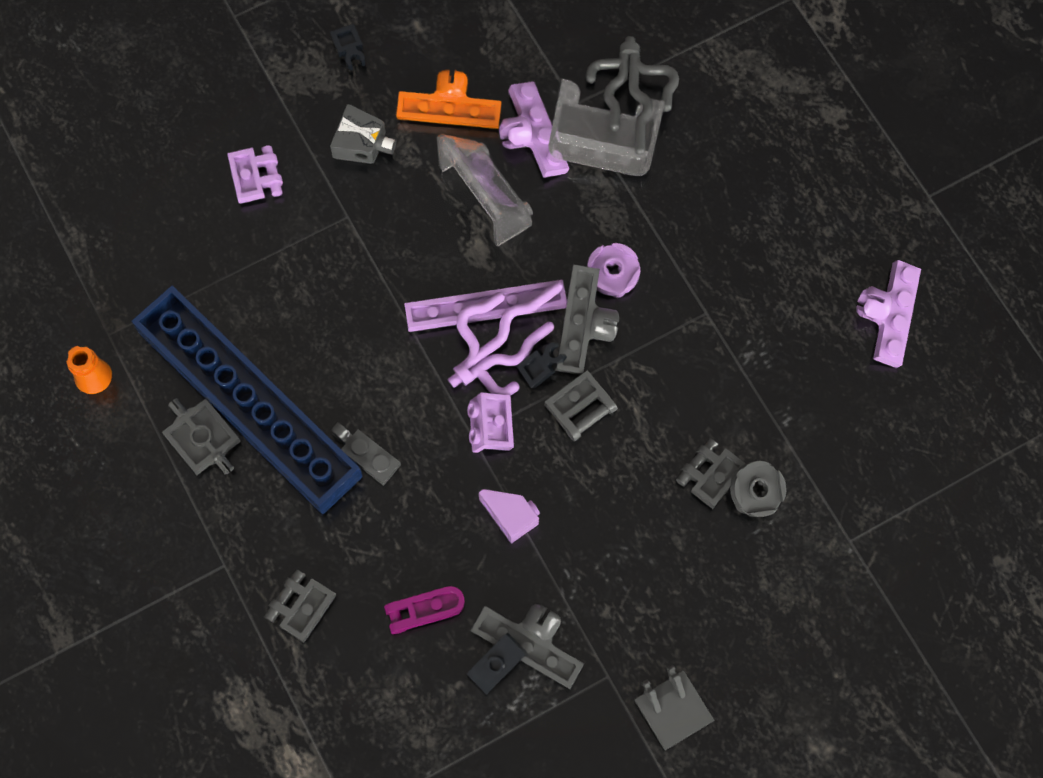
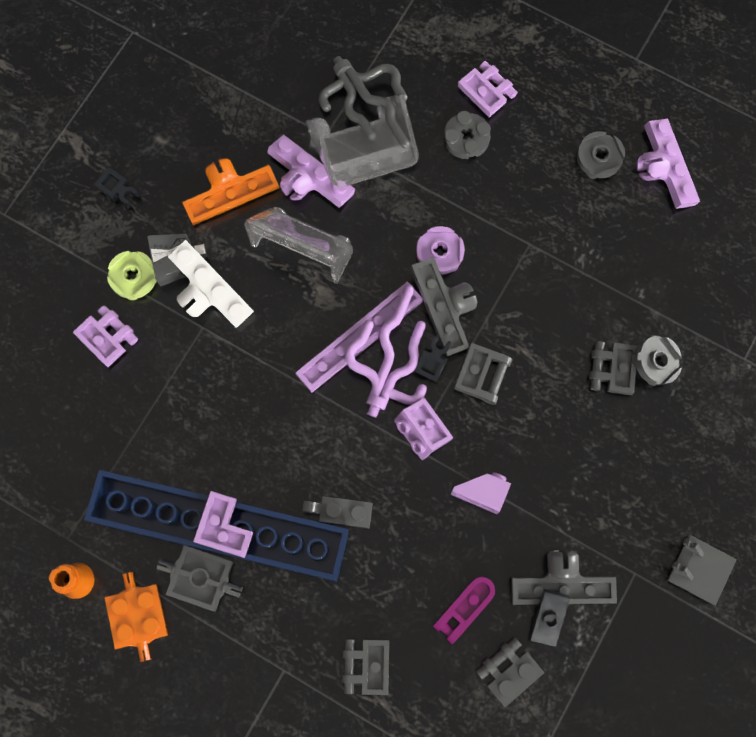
camera: 30 degrees left, 5 degrees up
(124, 437) = (136, 616): none -> orange plate
(240, 393) = (215, 528): none -> lavender plate
(302, 123) = (135, 287): none -> yellowish green plate
(372, 180) = (207, 287): none -> white plate
(429, 700) = (513, 679): none -> dark grey plate
(704, 189) = (467, 123): none -> dark grey plate
(751, 145) = (482, 92): none -> lavender plate
(827, 281) = (605, 144): none -> dark grey plate

